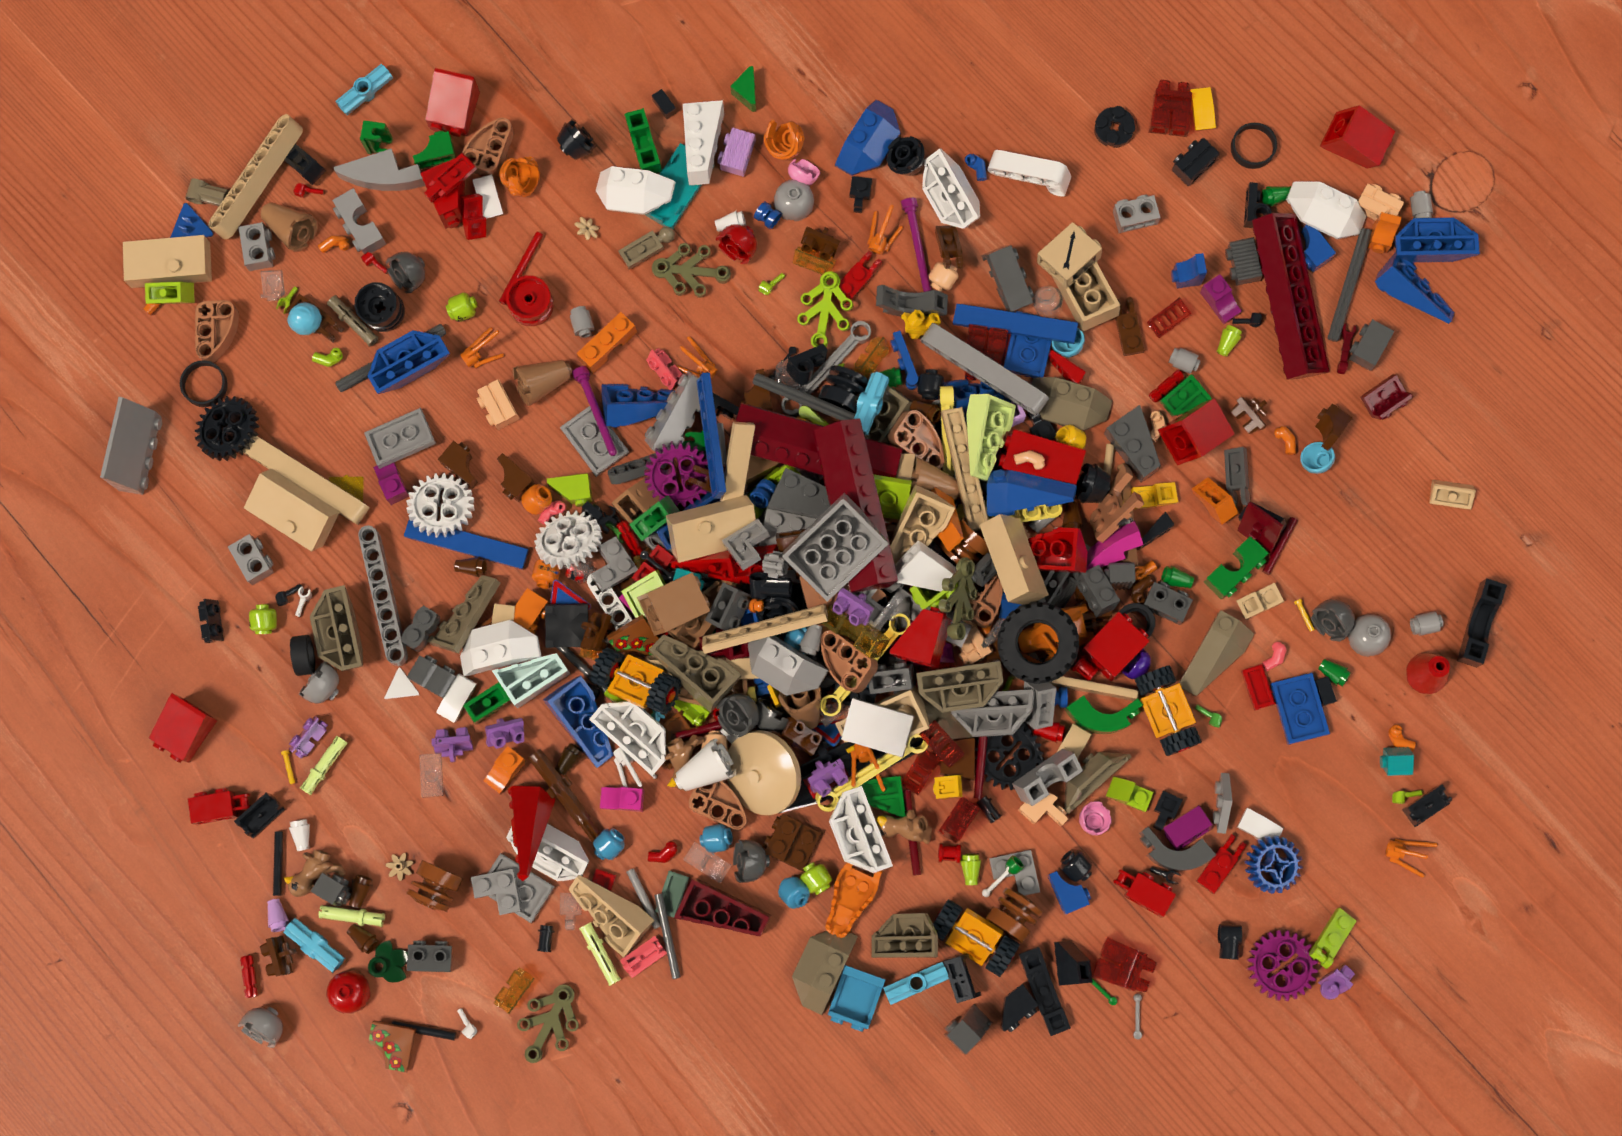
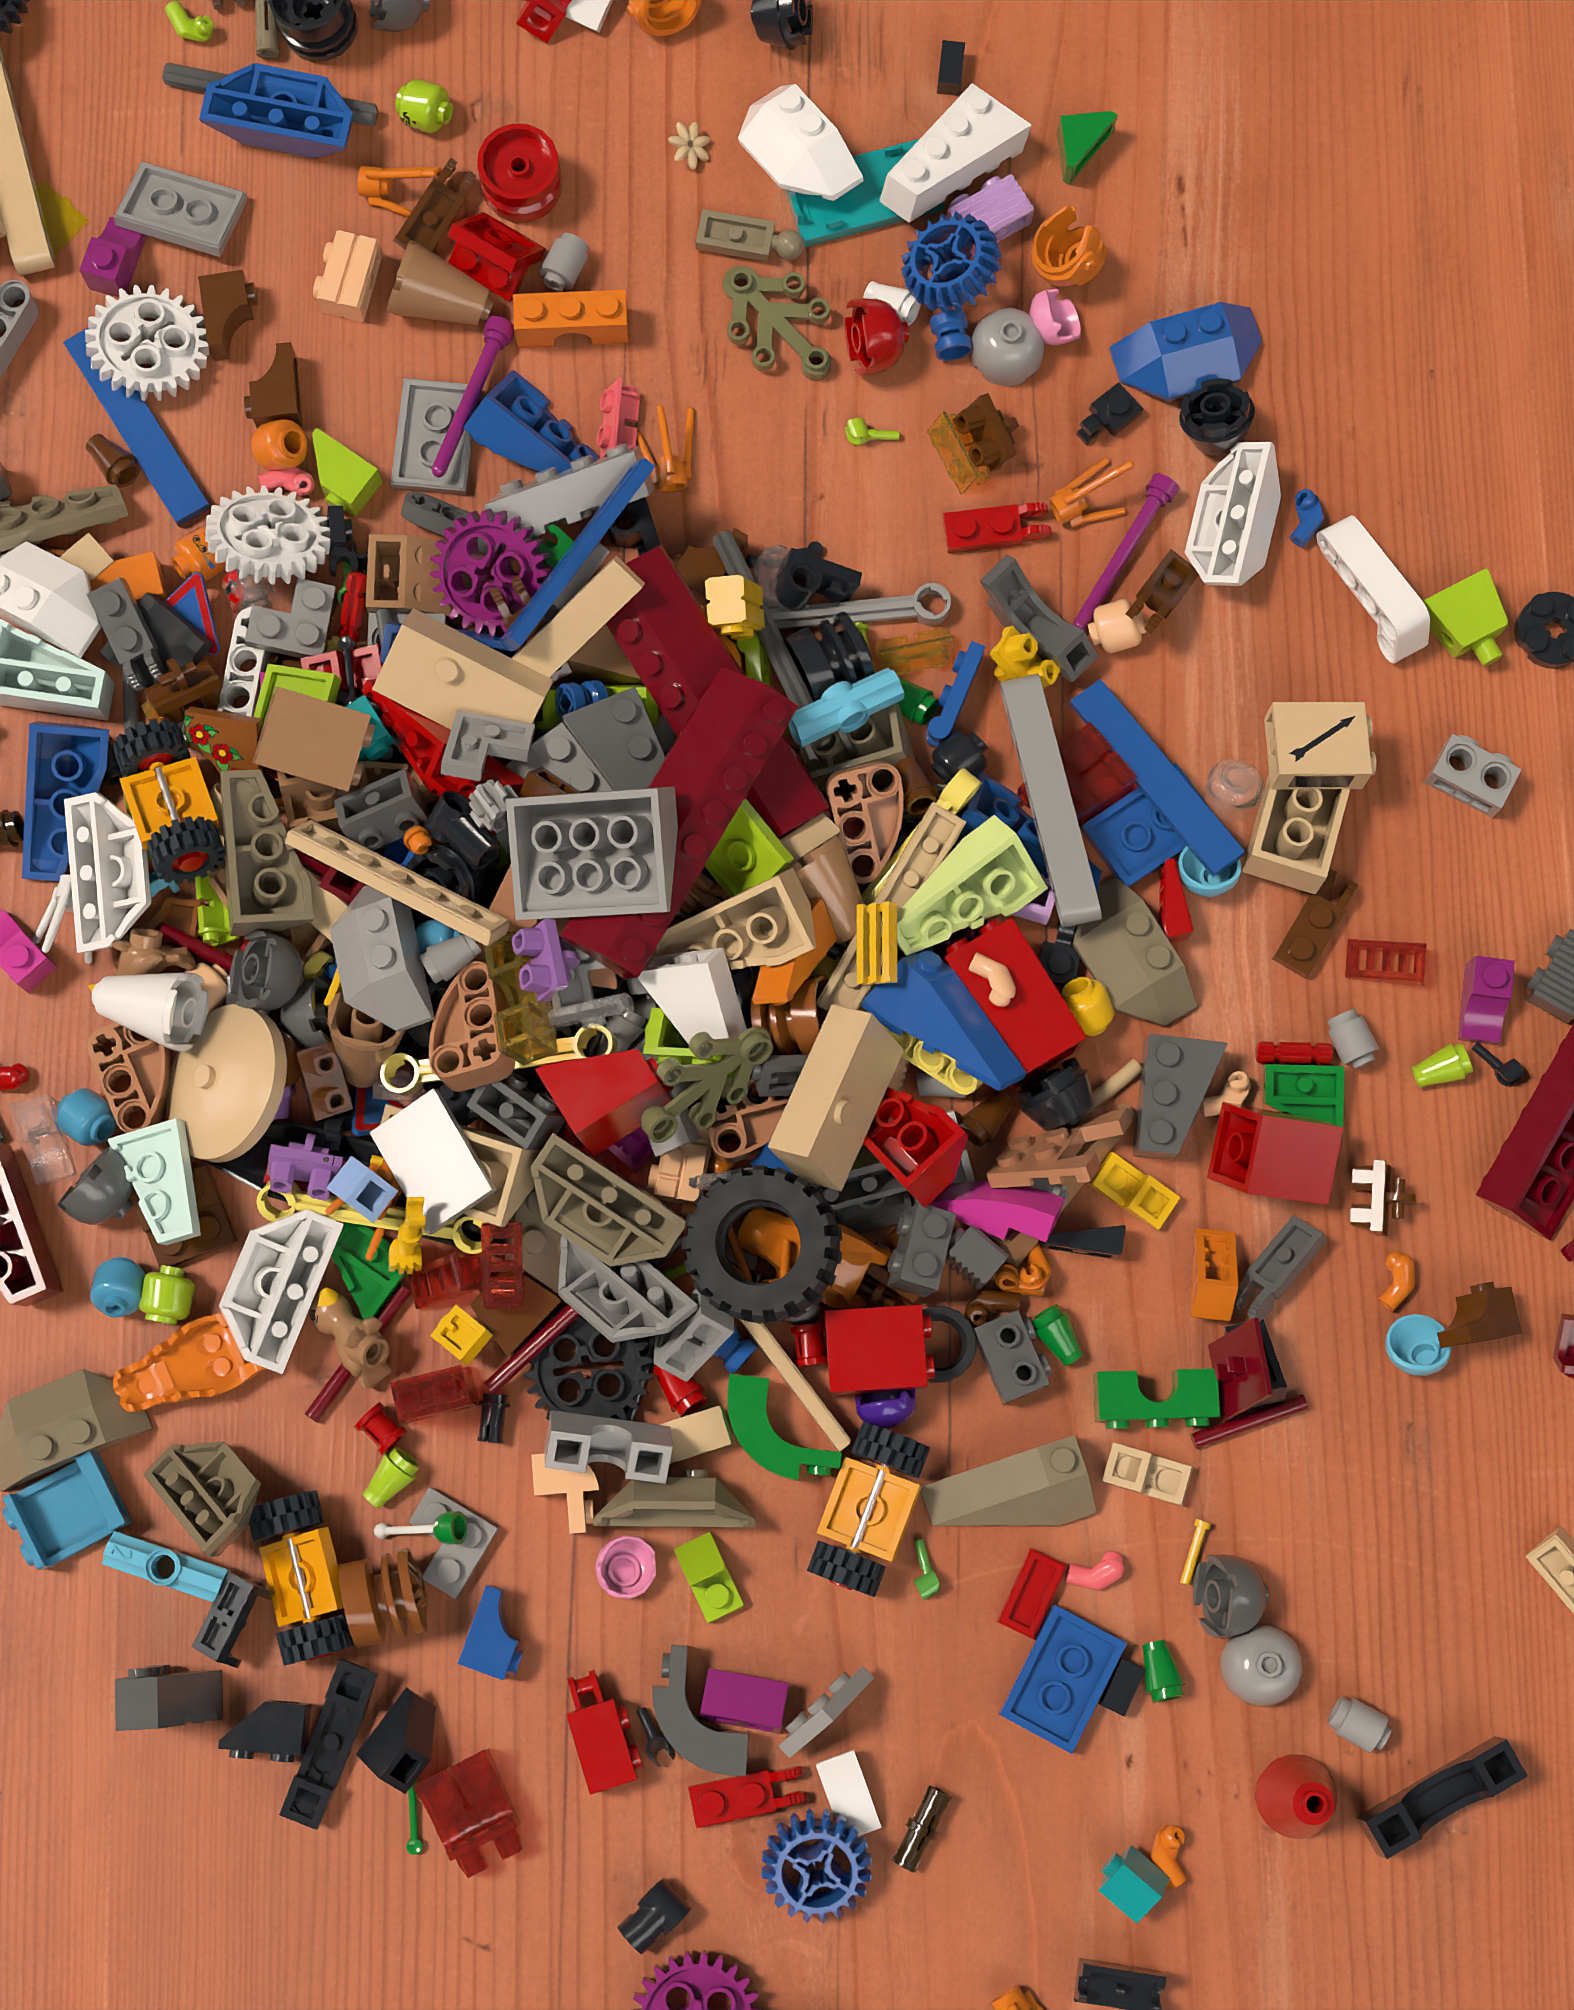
camera: 35 degrees right, 0 degrees up
(507, 346) = (434, 210): none -> reddish brown hinge
(523, 263) = (580, 113): red piece -> none
(549, 343) = (493, 253): none -> red bracket
(551, 628) = (126, 630): none -> dark grey hinge
(643, 141) = (877, 85): green arch -> none
(653, 518) = (395, 600): green arch -> none
(737, 172) = (954, 275): none -> blue gear
(773, 832) = (162, 1178): none -> light aqua wing
(791, 401) = (735, 606): none -> yellow brick
(825, 306) = (913, 527): lime plant -> none
(860, 763) = (362, 1189): none -> light blue brick
(895, 775) = (405, 1250): none -> yellow piece
(971, 487) = (871, 943): none -> yellow tile
(1009, 277) = (1207, 707): dark grey wedge -> none
(1076, 865) = (538, 1608): black head -> none
(1078, 151) = (1469, 617): none -> lime torso
(1137, 1034) = (405, 1925): light grey hinge -> none
(1147, 560) = (1037, 1271): none -> orange arm
(1167, 808) = (743, 1643): black plate -> none
(1189, 272) = (1473, 921): blue arch -> none
(1299, 814) = (921, 1828): none -> dark brown pin
(1399, 797) = (1090, 1936): lime hand -> none

